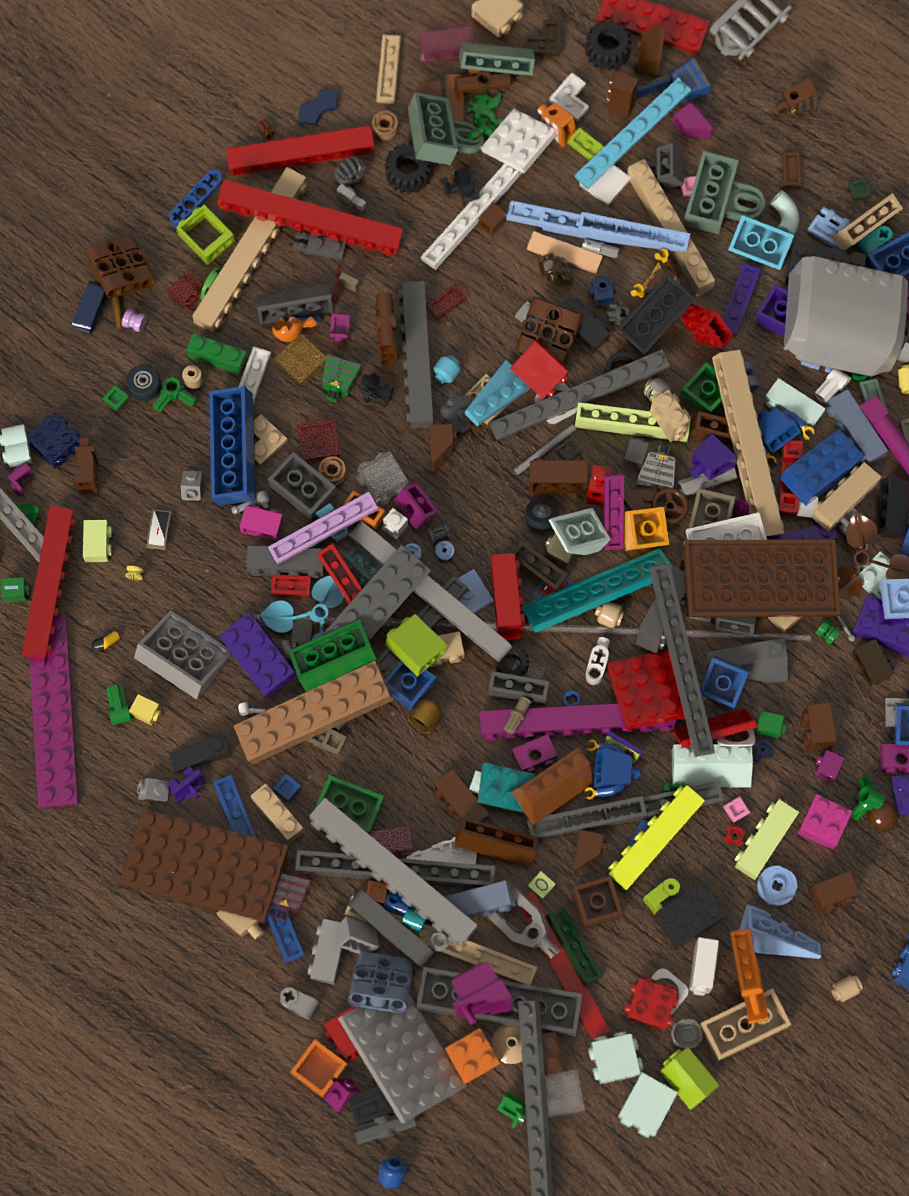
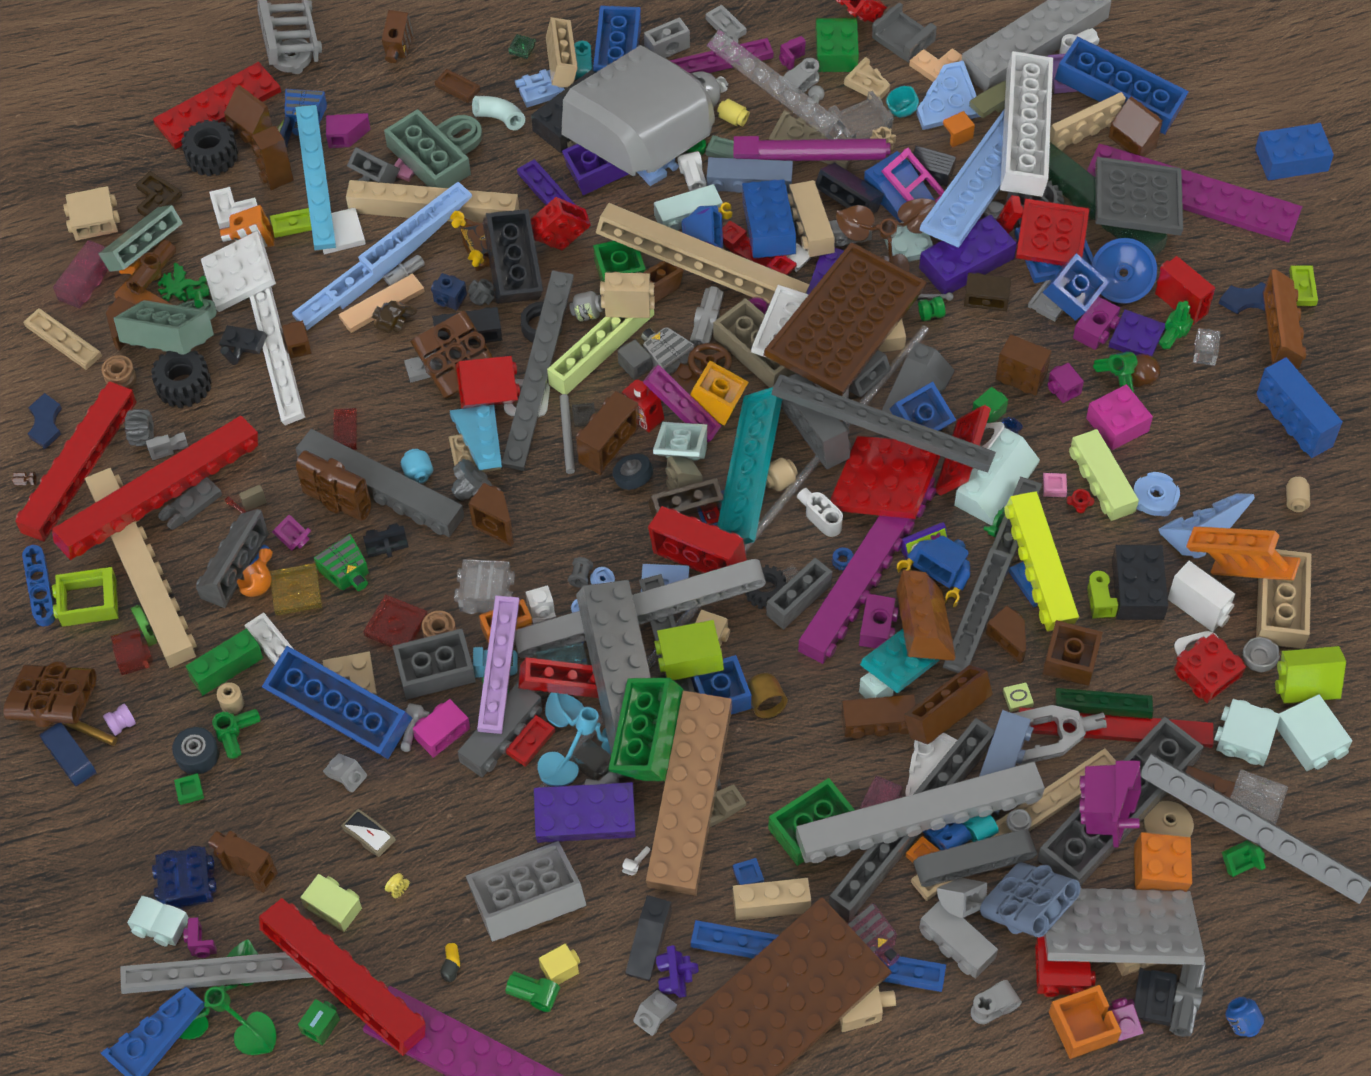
camera: 55 degrees left, 15 degrees down
(416, 505) = (527, 565): magenta brick -> none
(517, 715) = (829, 606): dark tan axle -> none
(712, 459) = (693, 294): dark purple torso -> none
(761, 242) = (511, 140): medium azure brick -> none
(834, 892) = (1198, 446): reddish brown brick -> none

